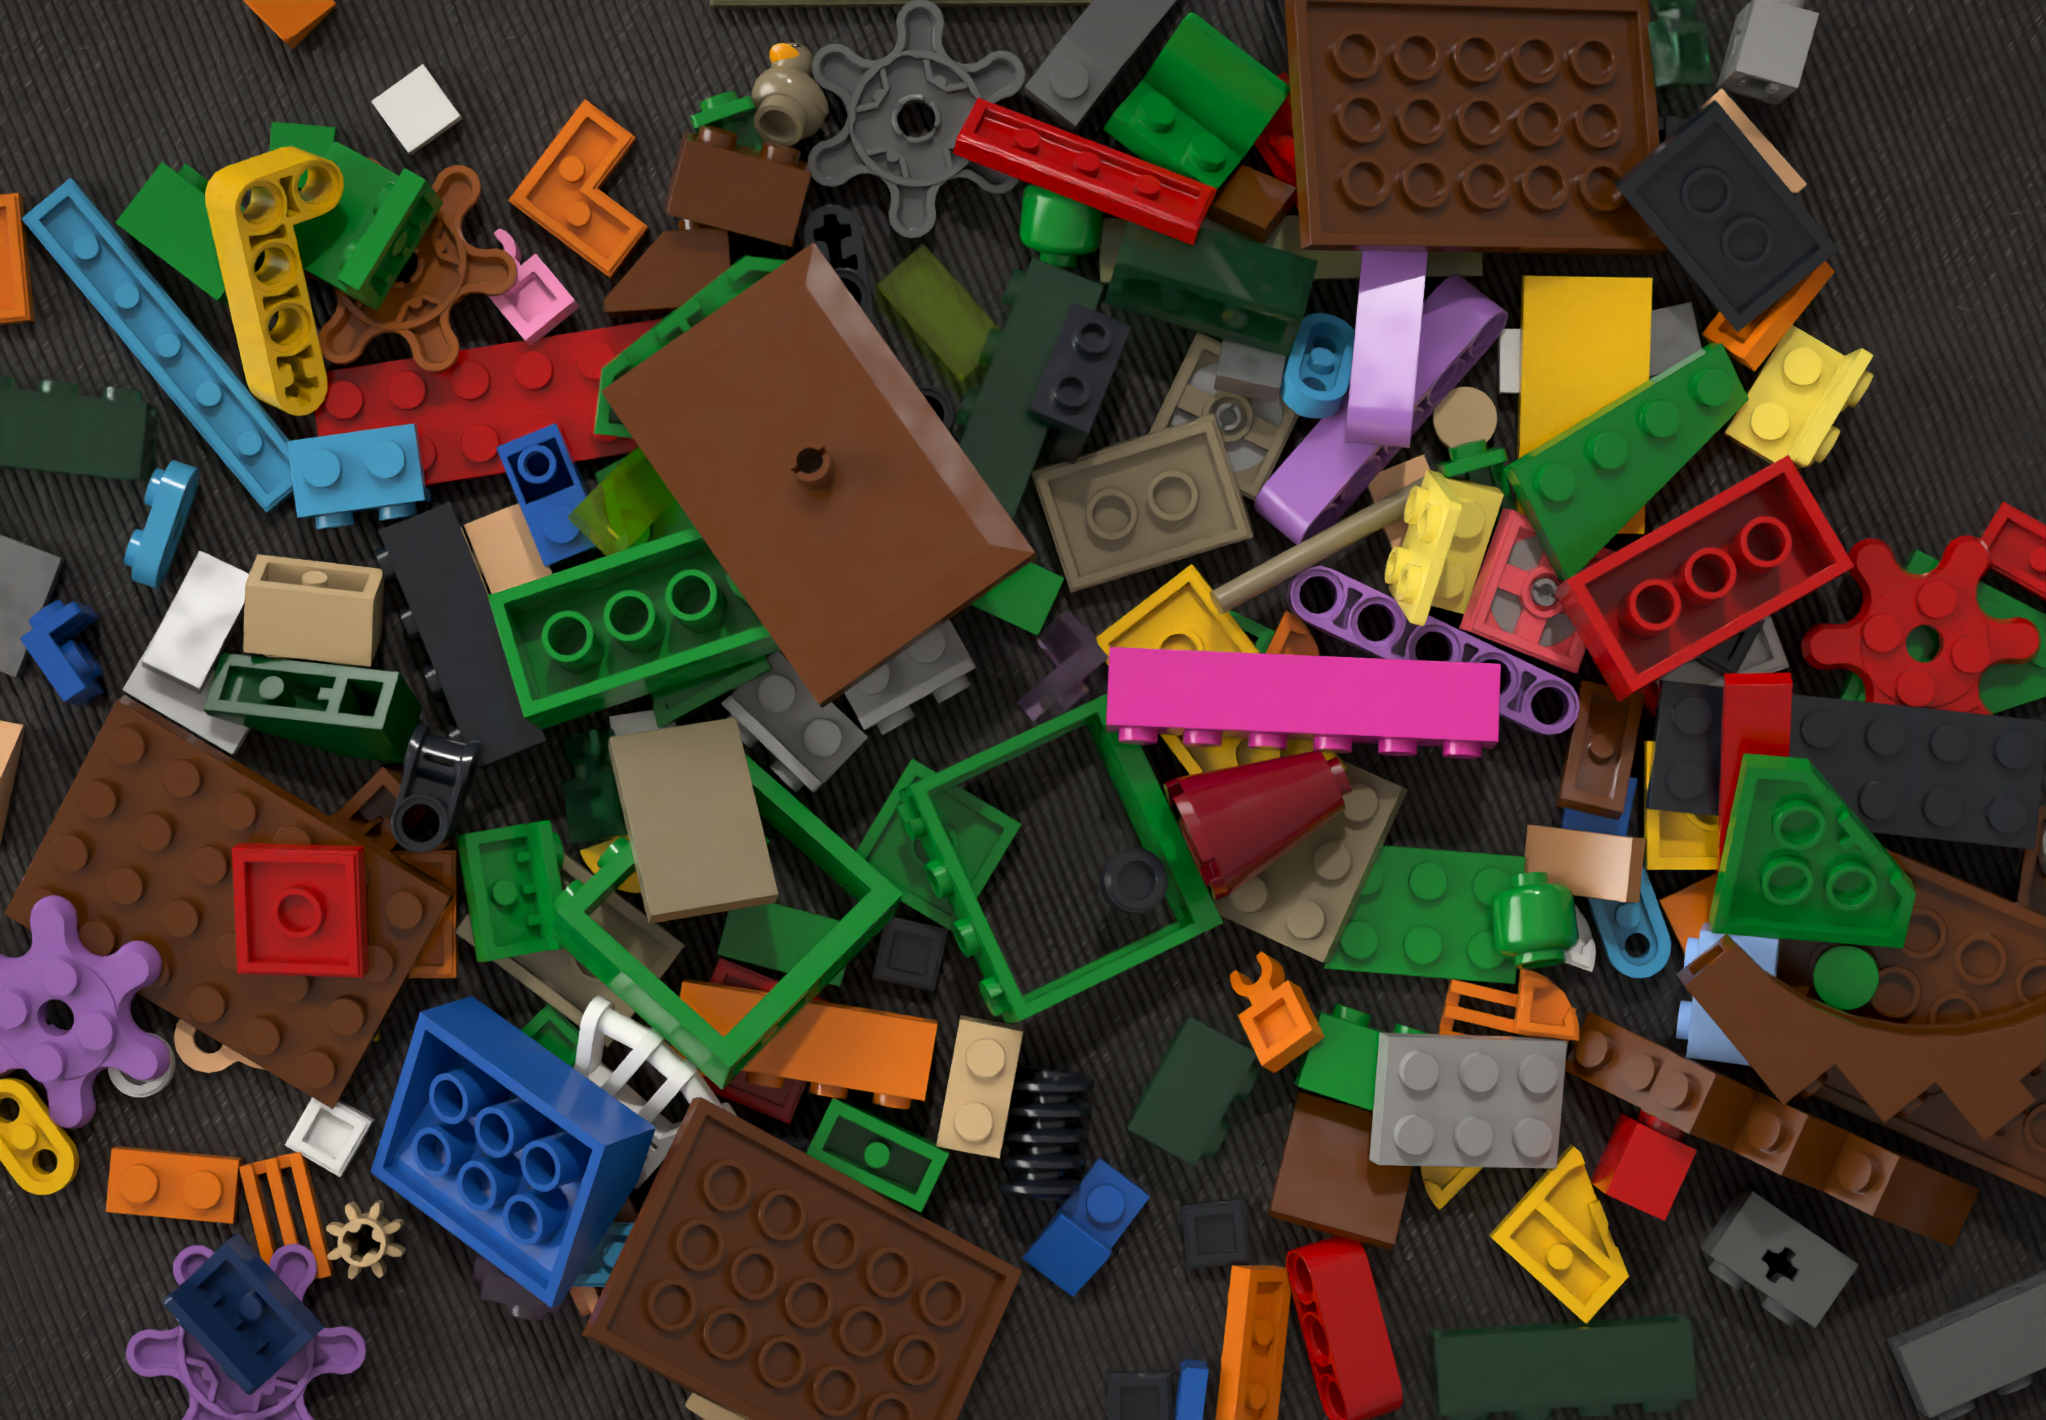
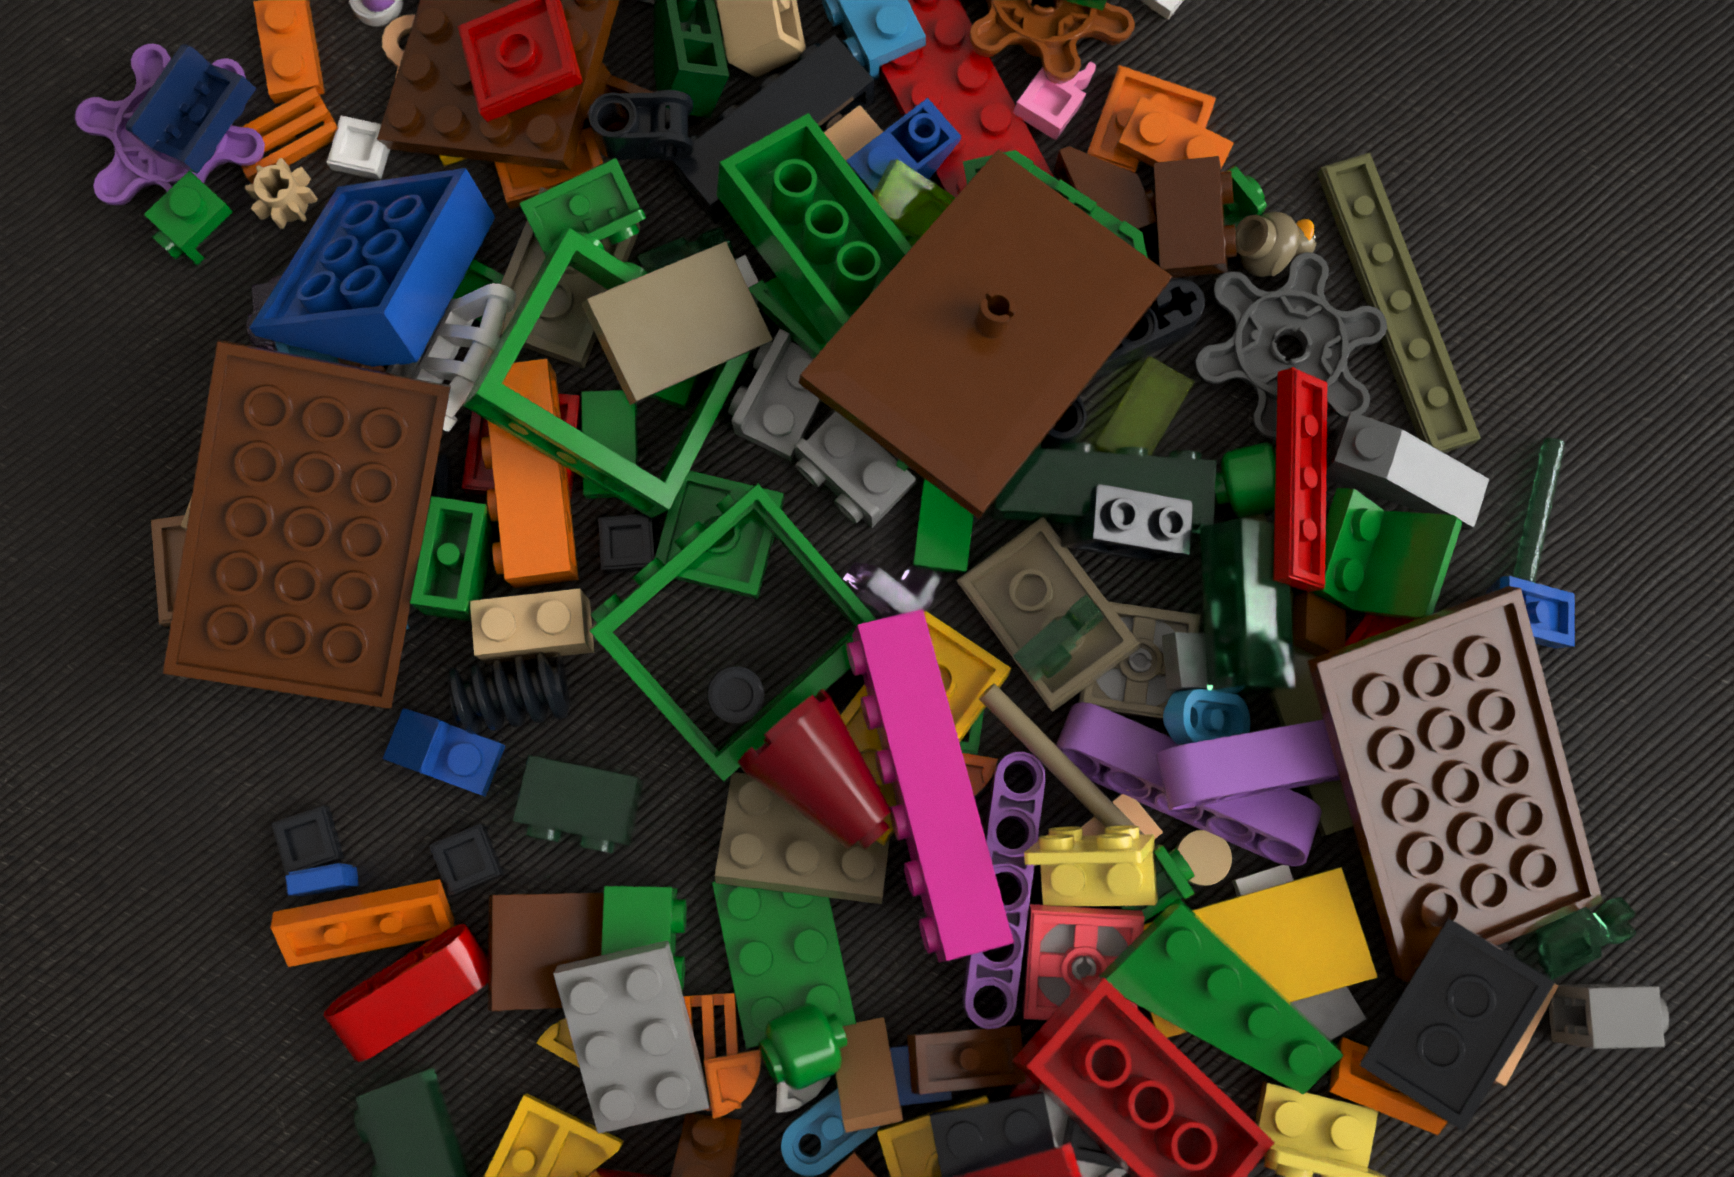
camera: 75 degrees right, 10 degrees down
(366, 1355) = (187, 217): none -> green bracket
(629, 173) = (1163, 136): none -> orange plate
(1192, 518) = (1050, 648): none -> clear green plate
(1280, 1015) = (659, 854): orange plate -> none

